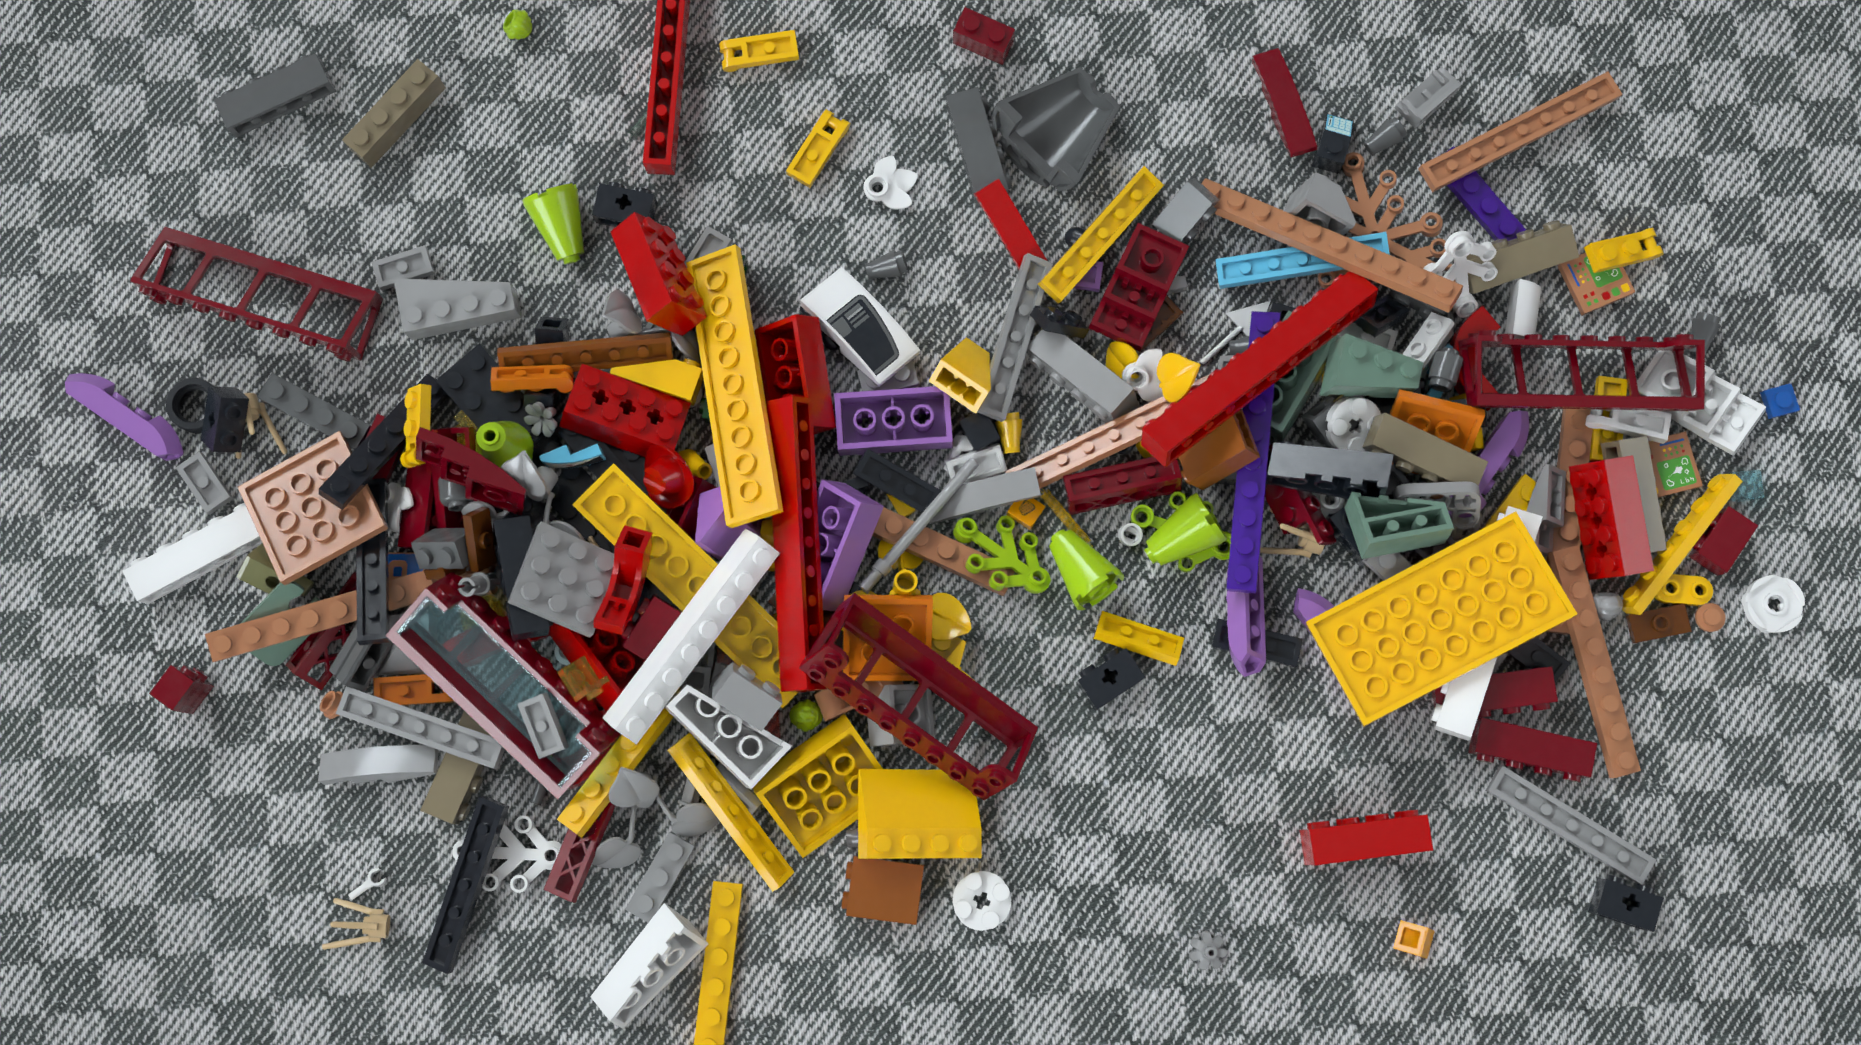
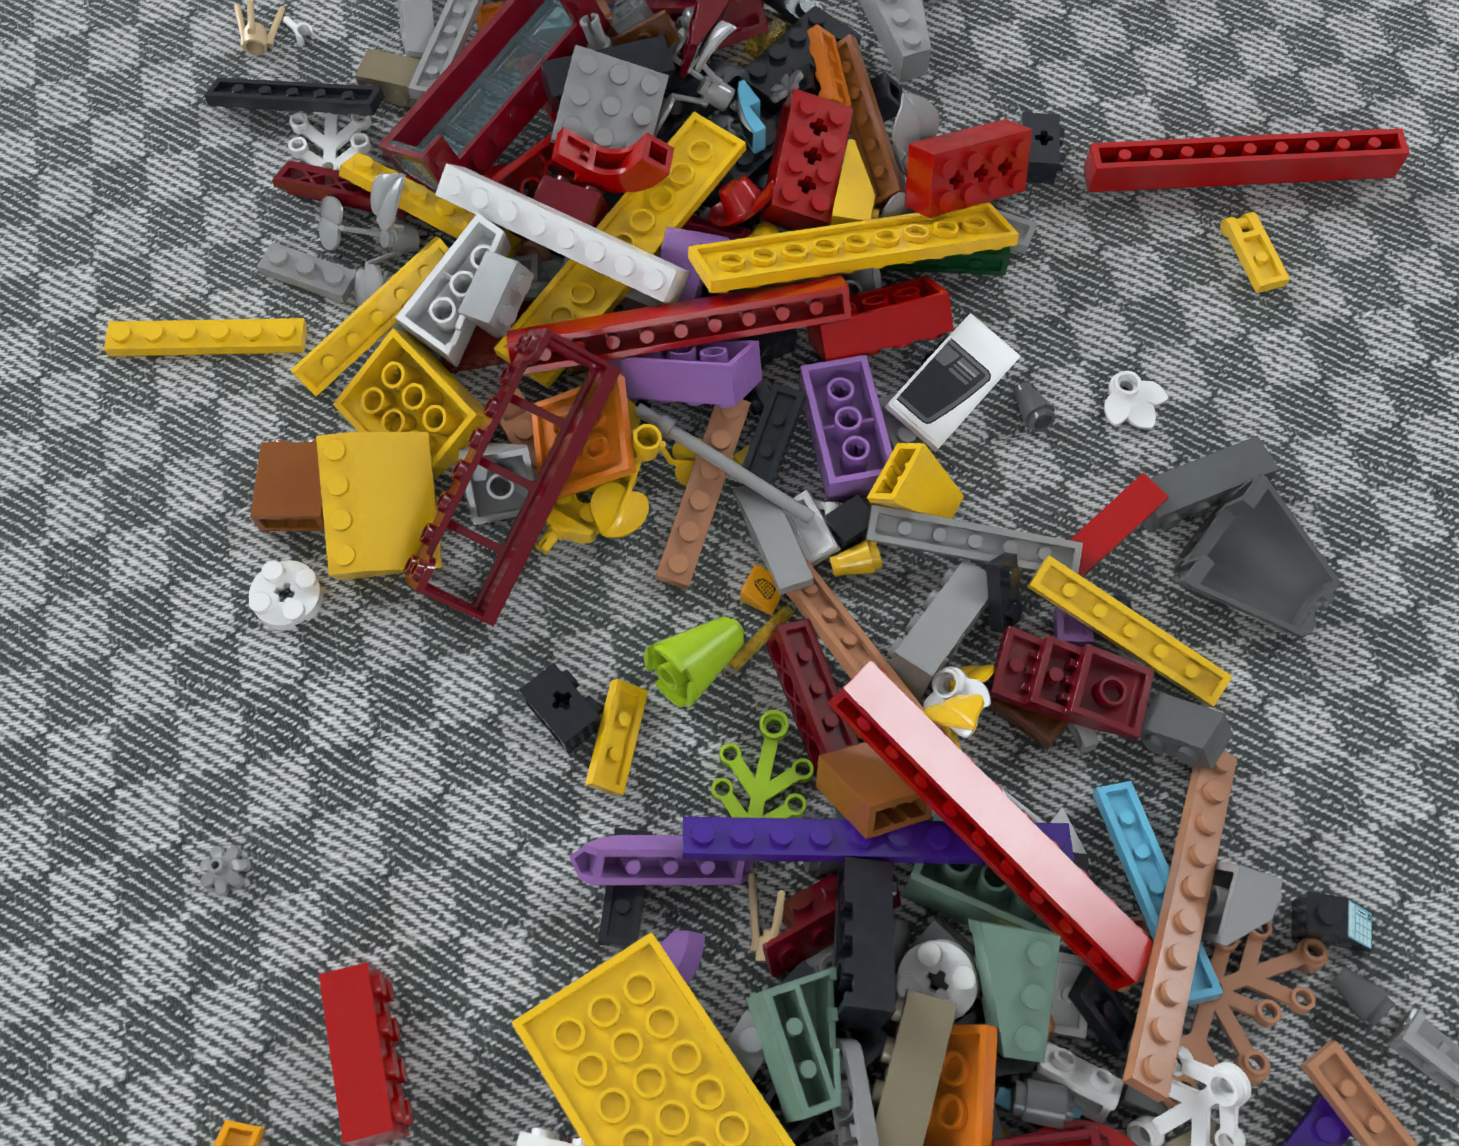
camera: 80 degrees right, 15 degrees down
(503, 441) = (751, 48): lime cone -> none
(517, 25) = (1214, 32): lime piece -> none
(543, 725) = (456, 119): light grey plate -> none
(558, 220) = (1010, 87): lime cone -> none
(582, 680) = (505, 146): clear yellow bracket -> none
(648, 965) = (210, 263): white wedge -> none
(805, 715) = (488, 383): lime piece -> none
(817, 149) = (1157, 321): yellow plate -> none
(983, 36) = (1345, 474): dark red brick -> none
(1005, 557) = (699, 570): lime plant -> none
(1133, 529) = (740, 712): white hinge -> none
(1185, 533) = (759, 773): lime cone -> none
(1285, 103) = (1369, 849): dark red slope -> none

